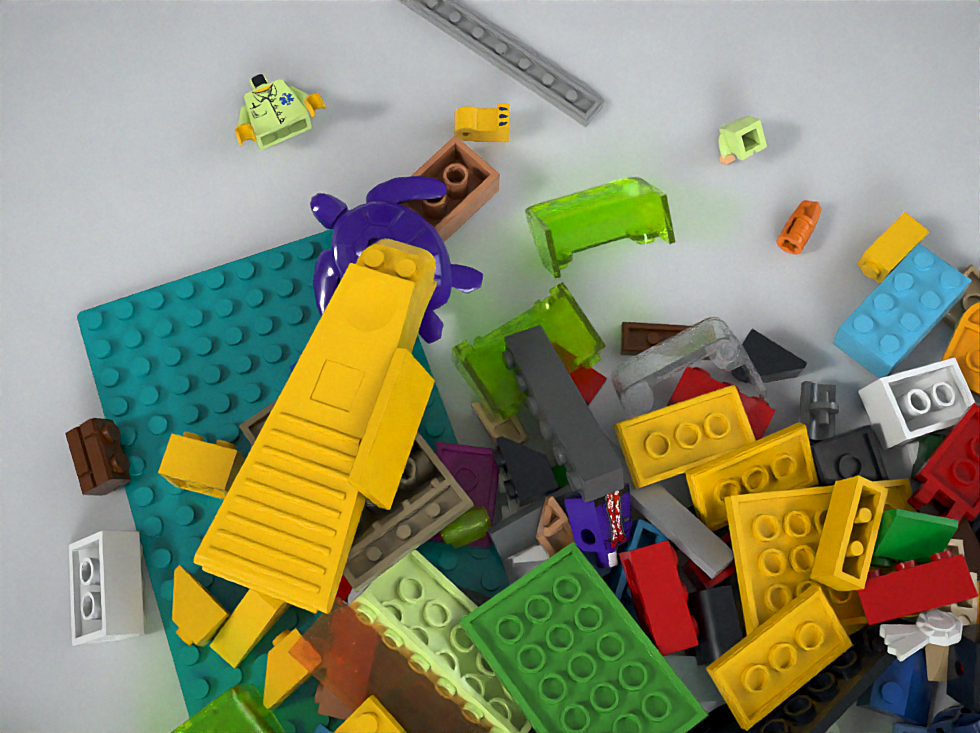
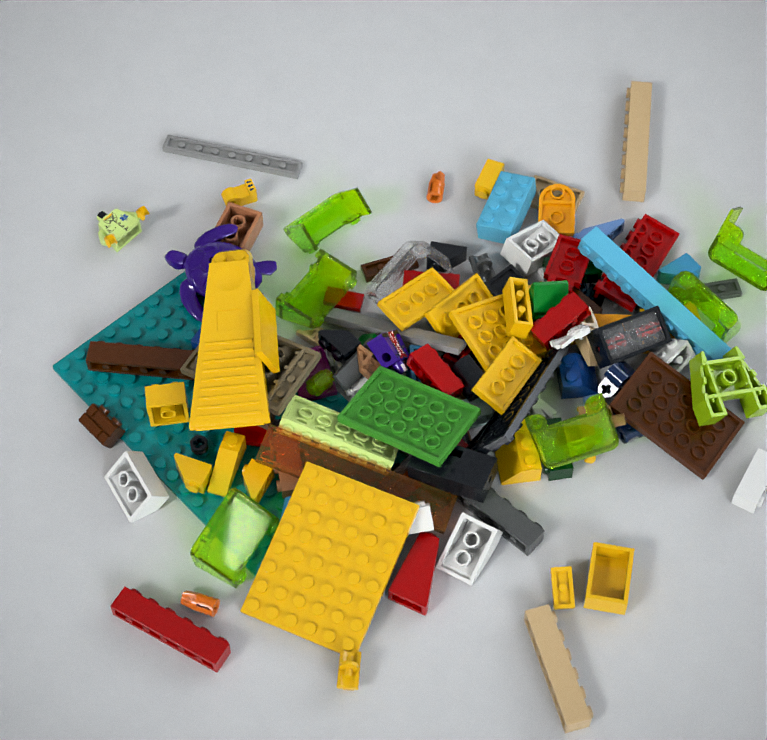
camera: 20 degrees left, 15 degrees down
(199, 359) = (137, 359): none -> reddish brown brick
(563, 415) = (347, 305): dark grey brick -> none
(741, 138) = (385, 153): yellowish green piece -> none

